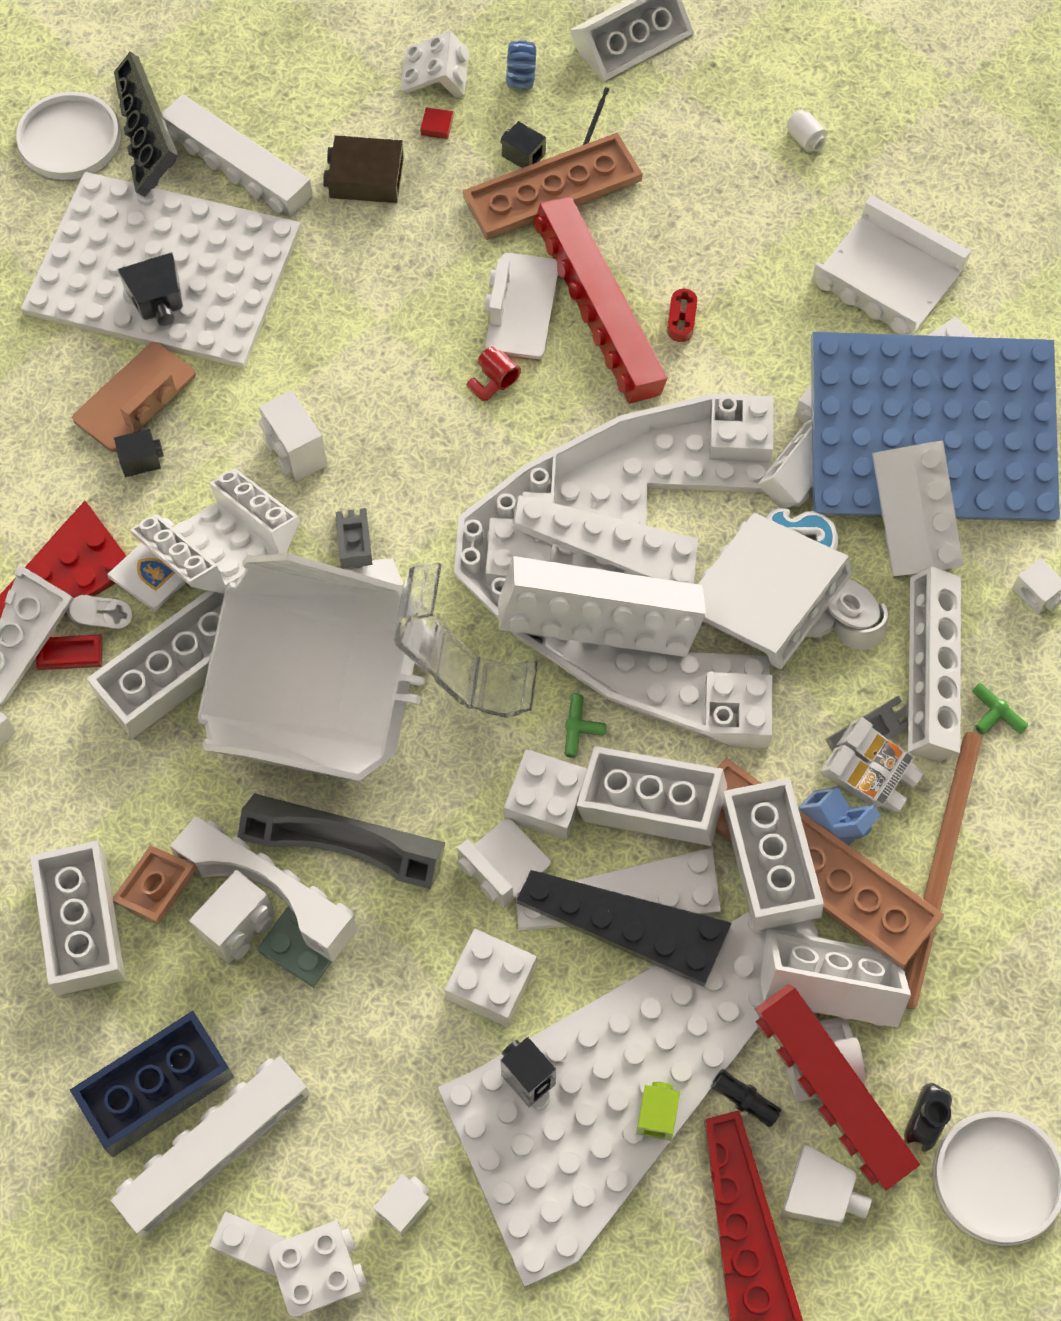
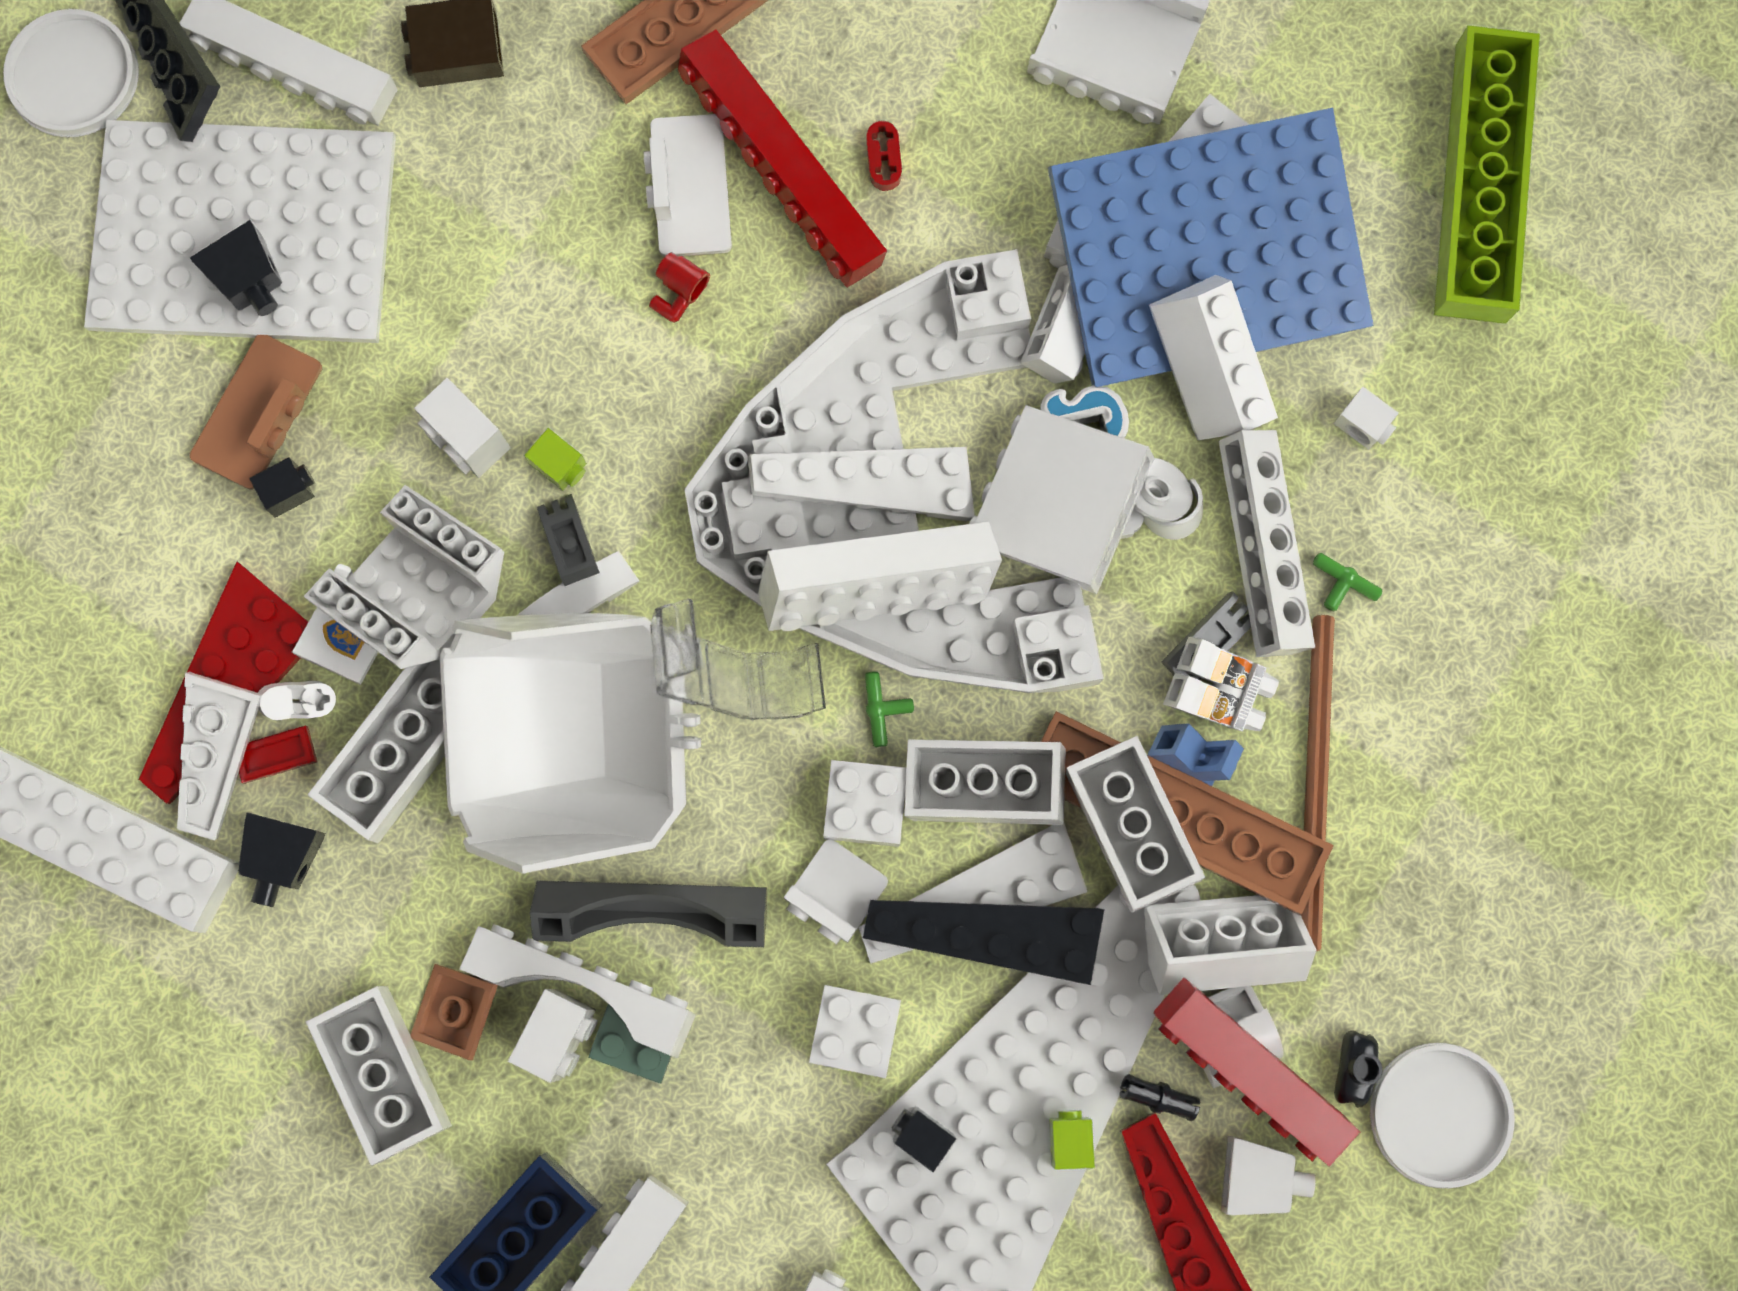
camera: 15 degrees left, 15 degrees up
(47, 727) = (276, 855): none -> black torso
(360, 478) = (556, 460): none -> lime brick

